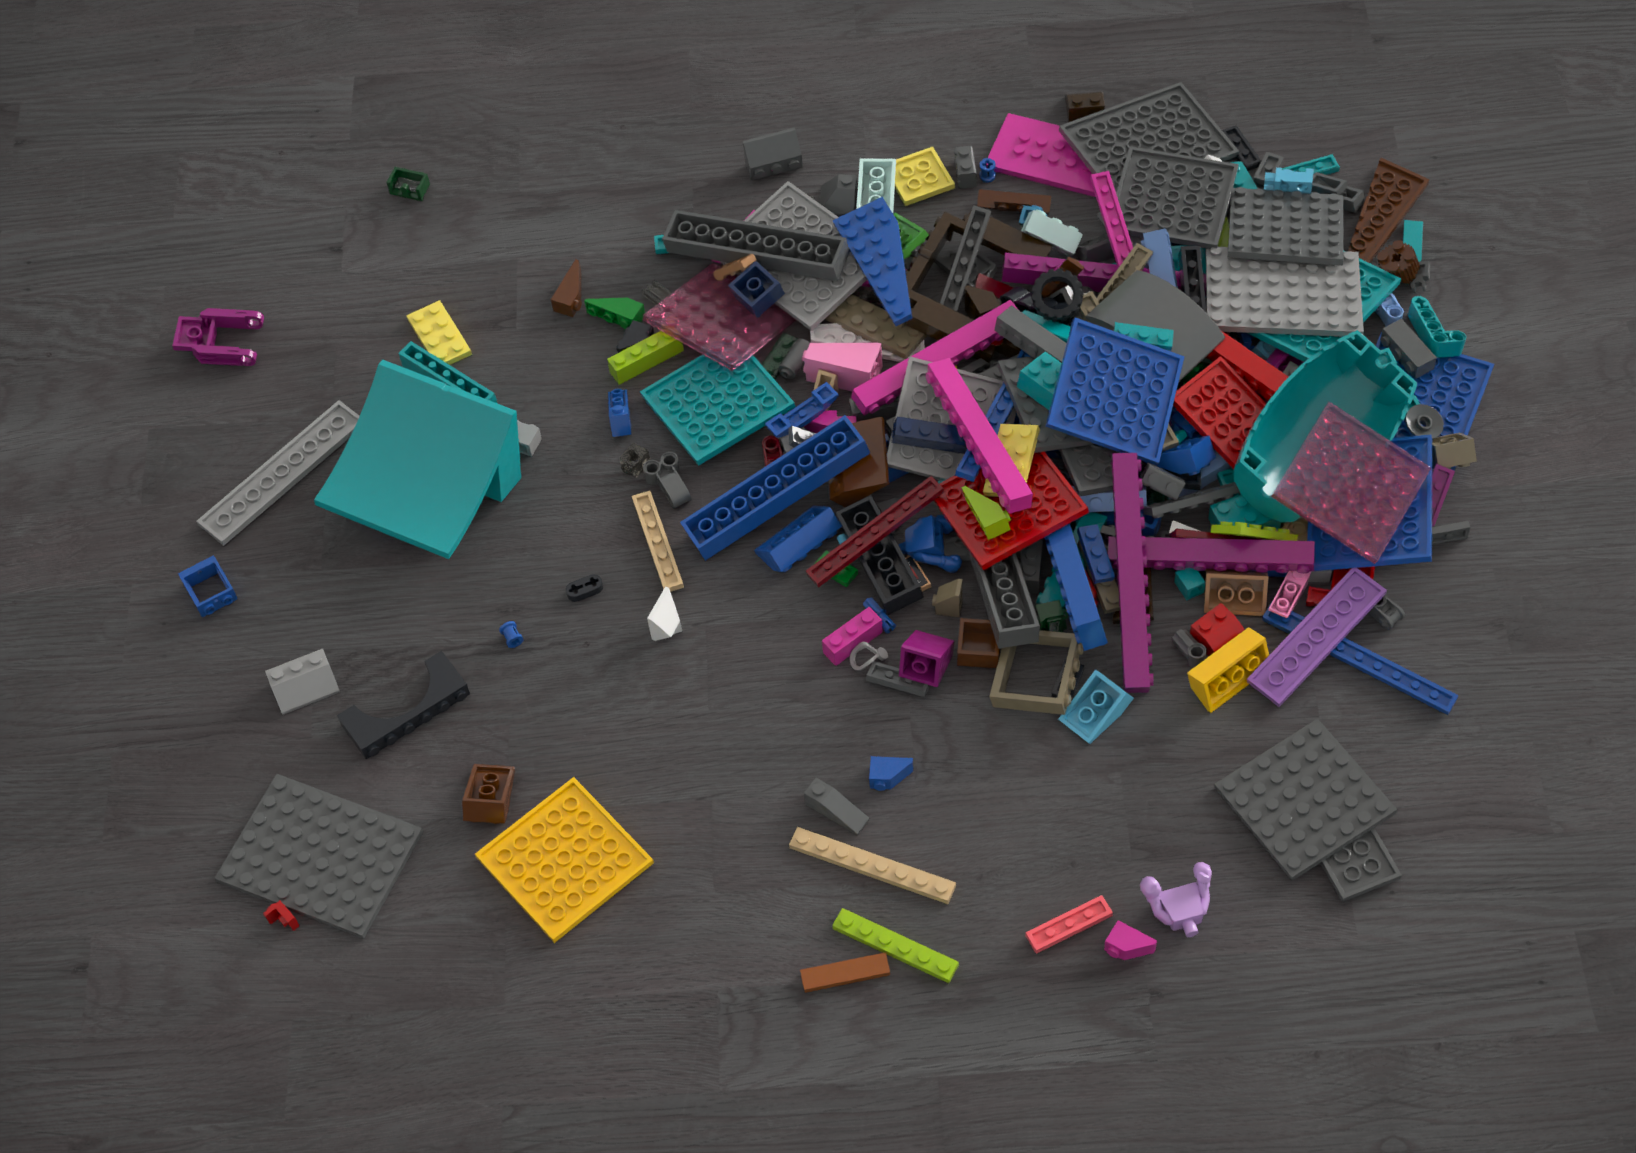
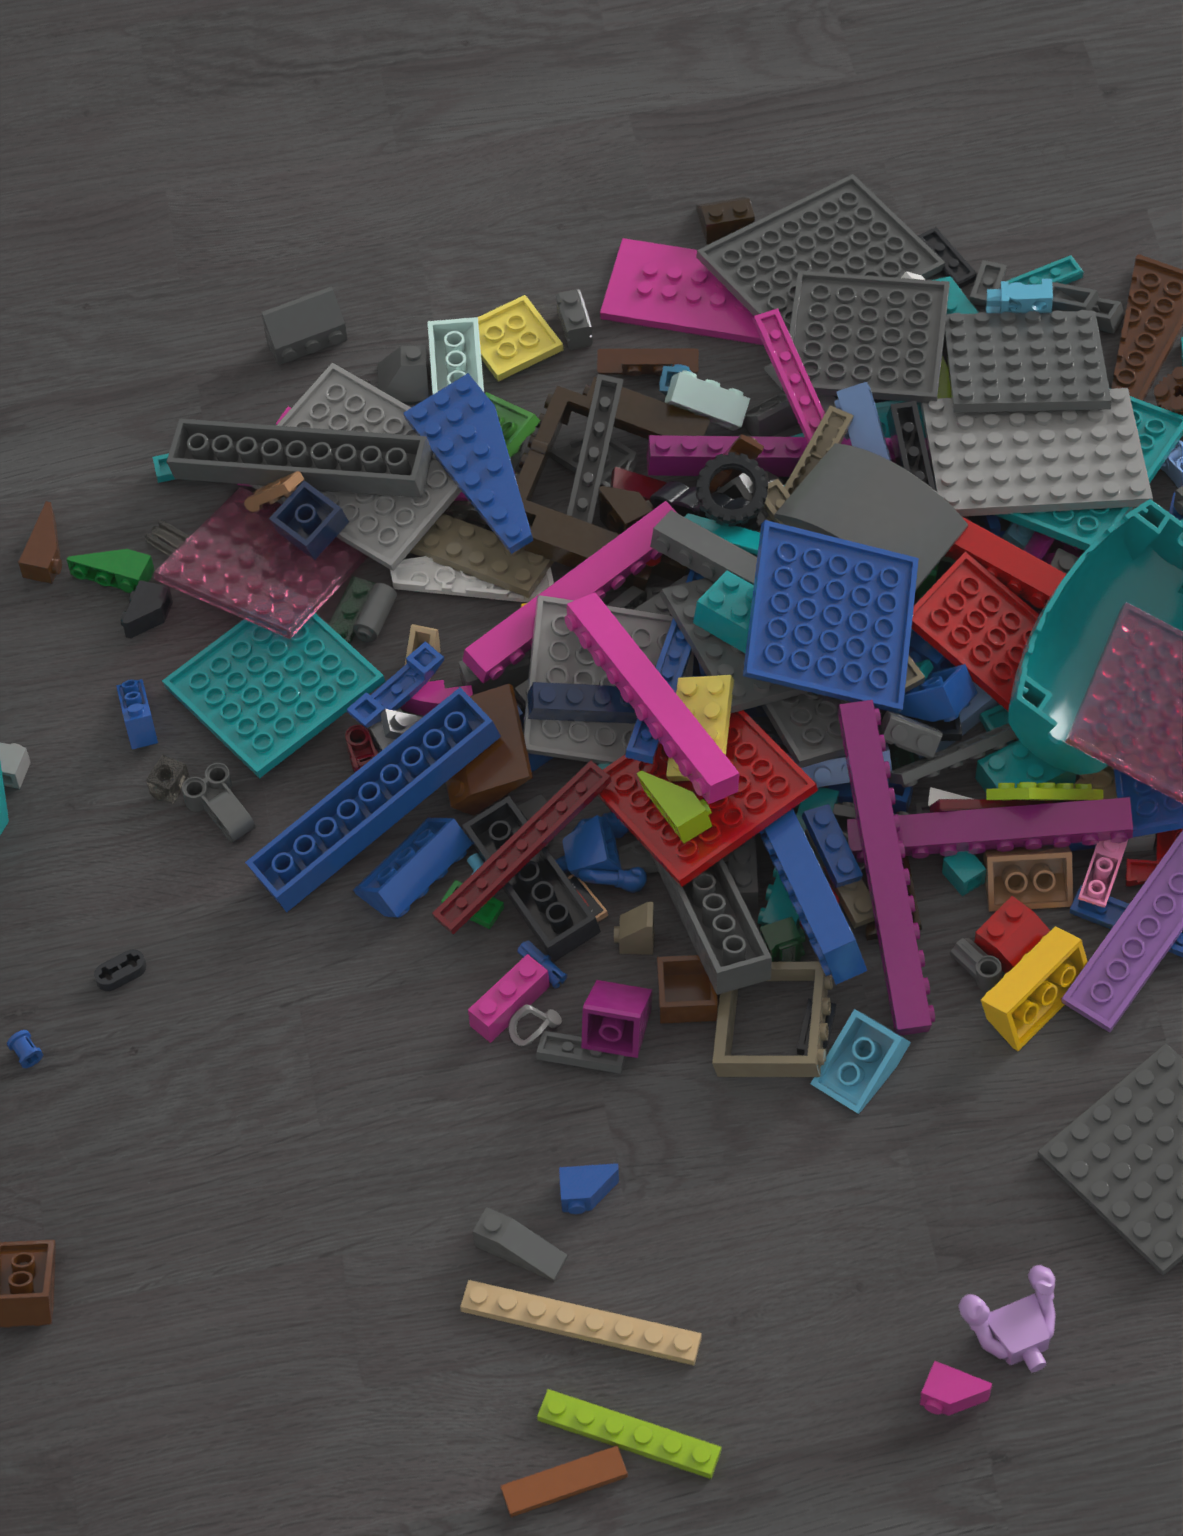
camera: 10 degrees left, 0 degrees up
(564, 859) = (143, 1366): yellow plate -> none
(643, 356) = (160, 630): lime brick -> none
(657, 541) = (216, 893): tan plate -> none
(664, 618) = (241, 1002): white slope -> none
(850, 361) = (456, 609): bright pink slope -> none
(991, 166) = (600, 326): blue bush -> none
(1069, 924) = (866, 1374): coral plate -> none
(1155, 336) = (873, 534): teal plate -> none

